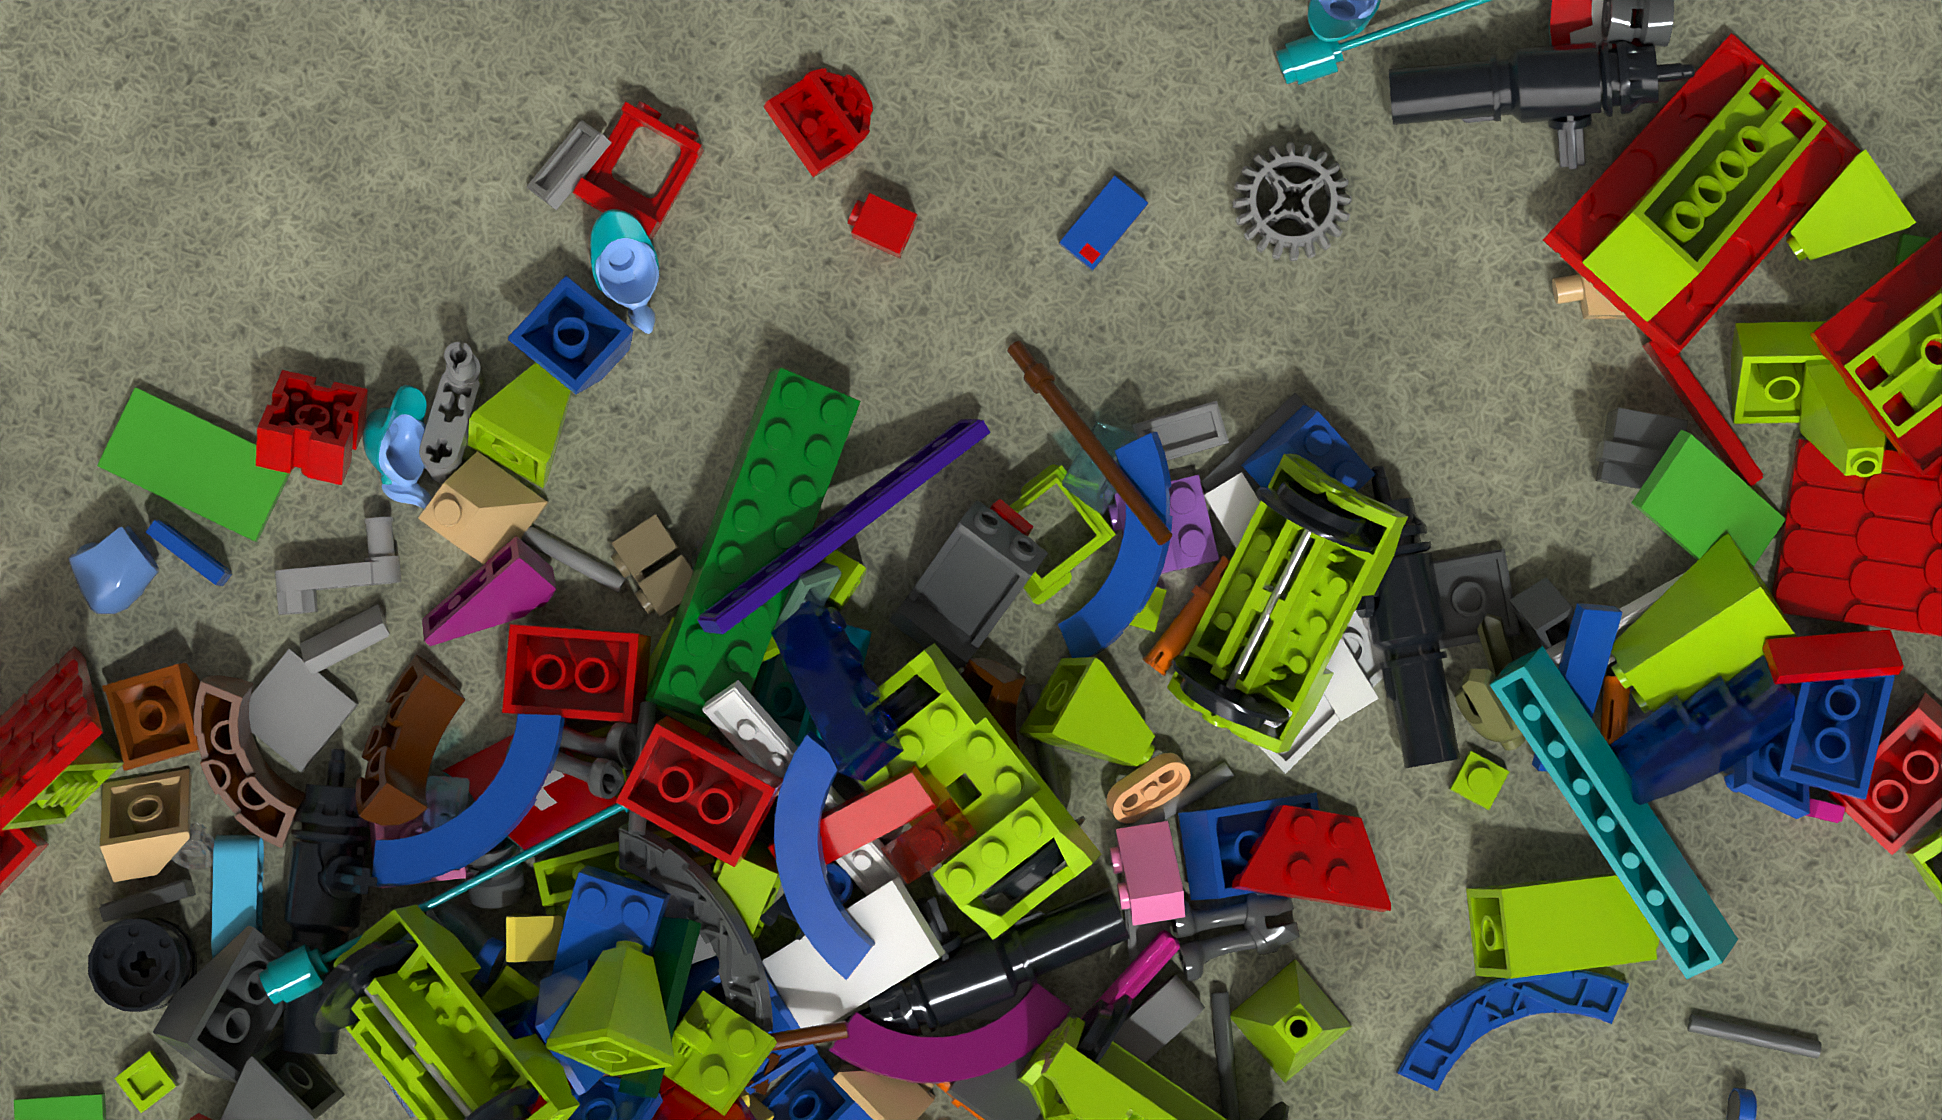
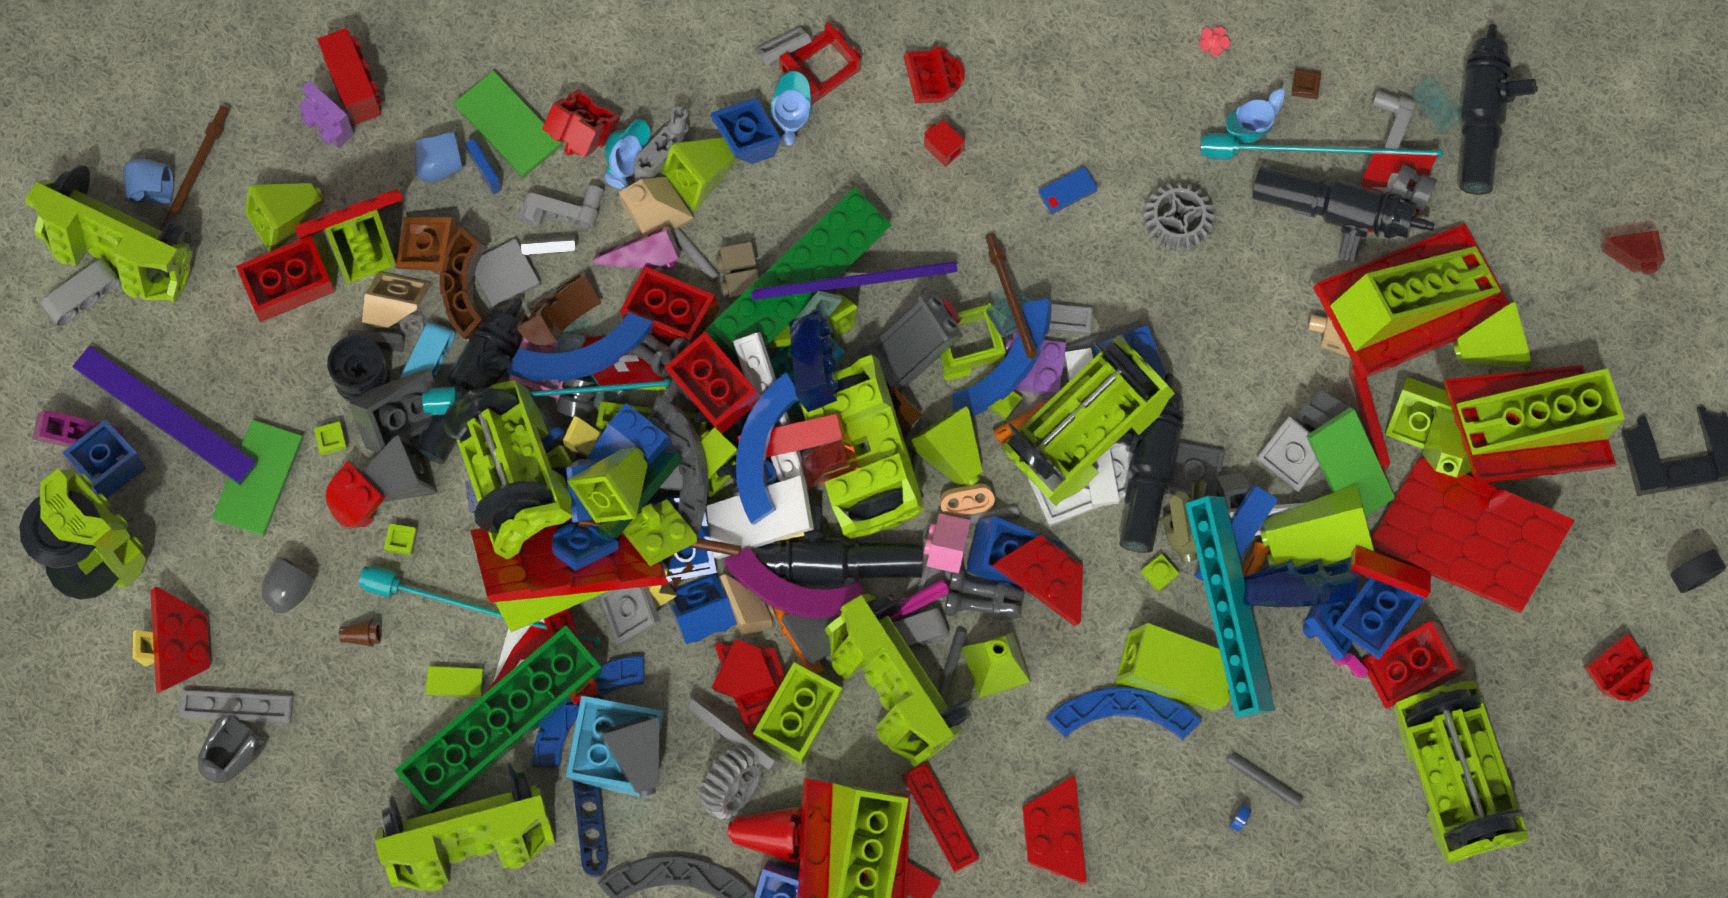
camera: 25 degrees right, 15 degrees down
(1603, 518) = (1290, 454): none -> light grey tile

